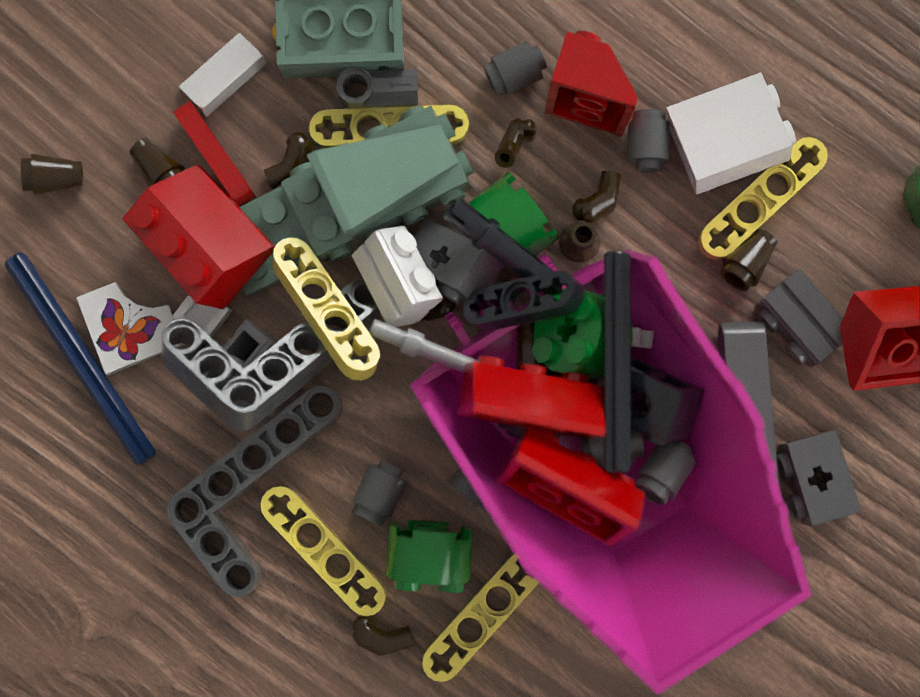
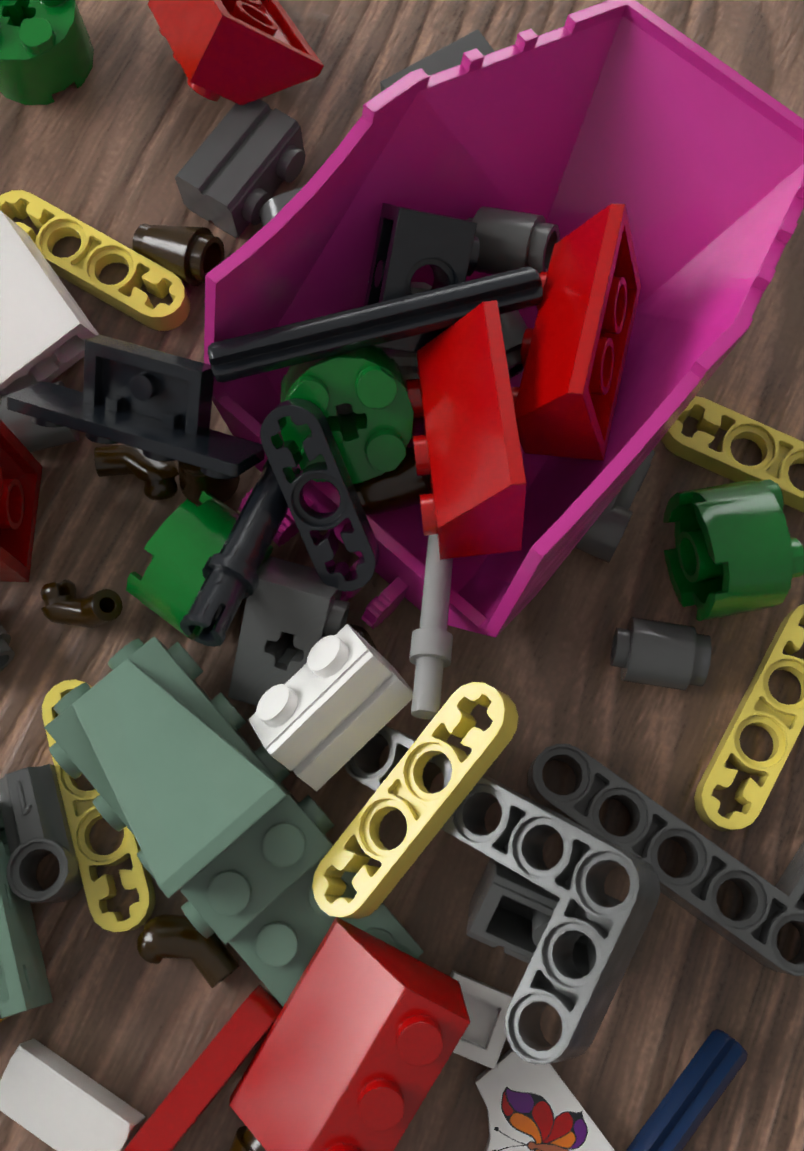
camera: 105 degrees left, 10 degrees down
(618, 204) = (144, 403): none -> black bracket

